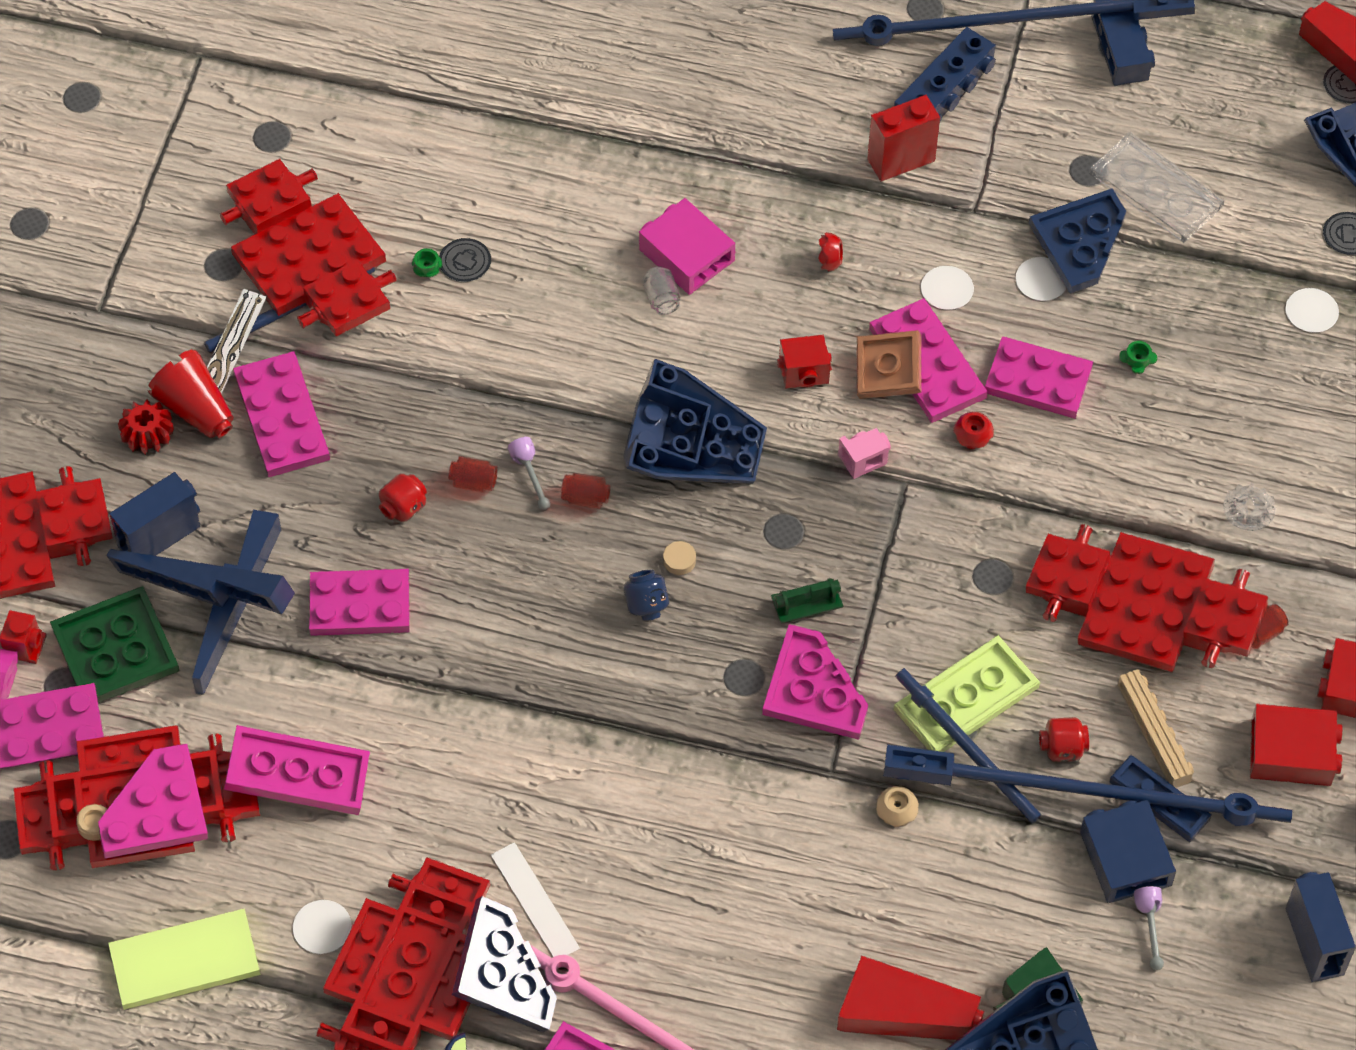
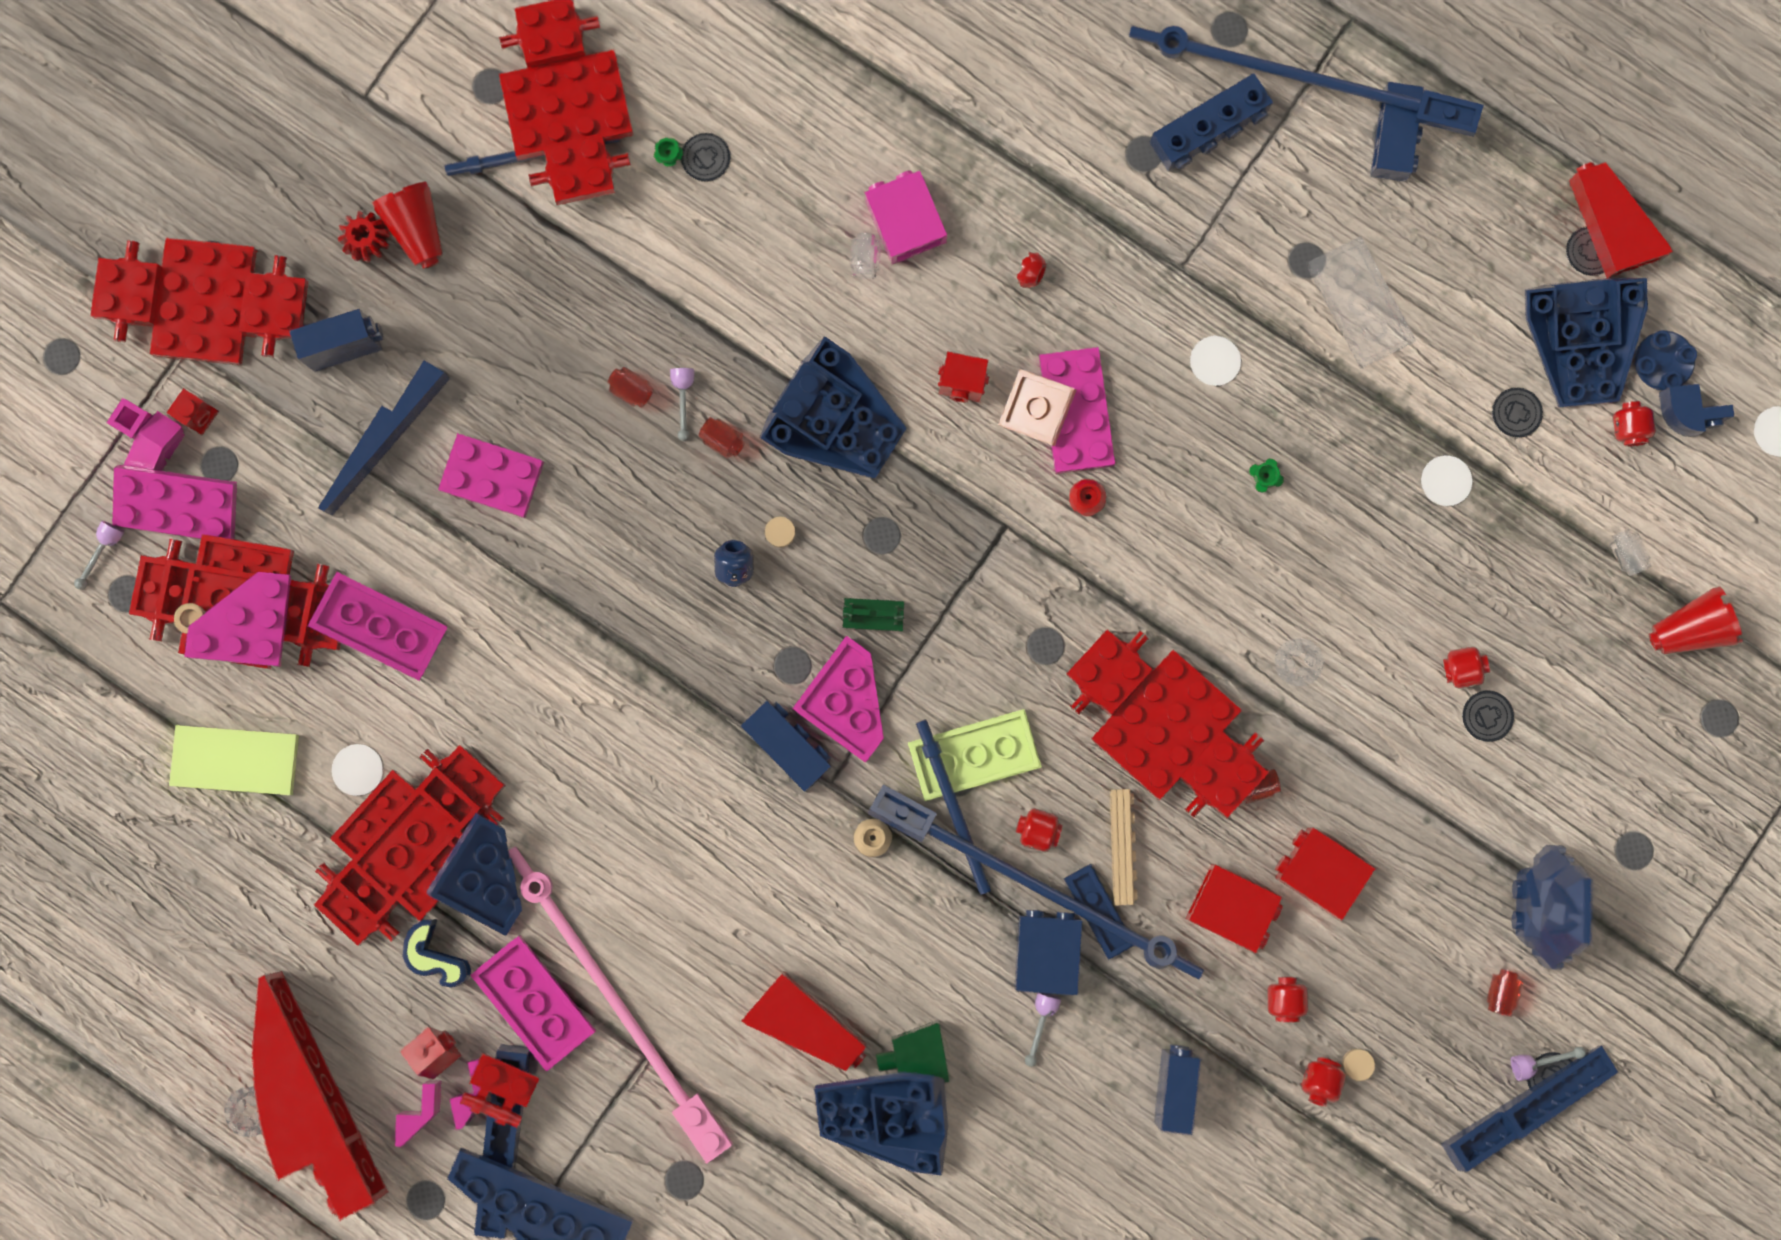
camera: 25 degrees right, 25 degrees up
(115, 644) = (269, 445): dark green plate -> none
(206, 581) = (356, 425): dark blue slope -> none
(234, 337) = (468, 174): sticker -> none
(281, 414) = (488, 262): dark pink plate -> none
(402, 497) = (561, 388): red head -> none
(535, 901) = (539, 811): white sticker -> none
(771, 746) = (787, 745): none -> dark blue brick
(864, 452) = (981, 487): bright pink brick -> none
(903, 138) = (1143, 177): red brick -> none
(947, 287) = (1126, 339): white sticker -> none
(1038, 377) = (1168, 463): dark pink plate -> none
(1080, 237) = (1266, 333): dark blue plate -> none

